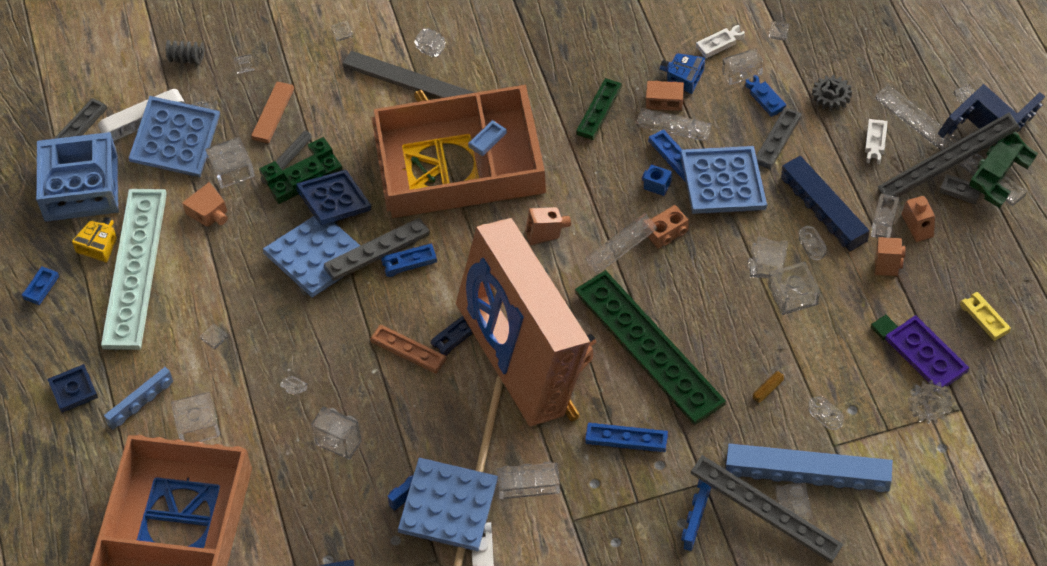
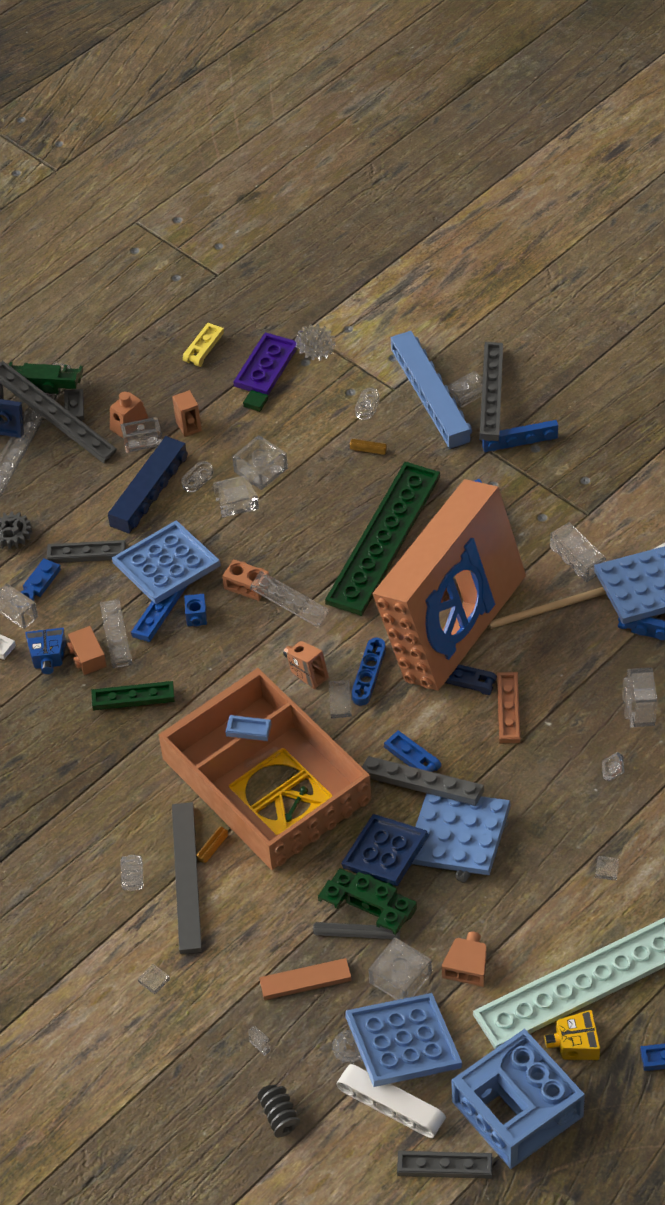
camera: 120 degrees left, 5 degrees down
(876, 139) = (50, 480): white plate -> none

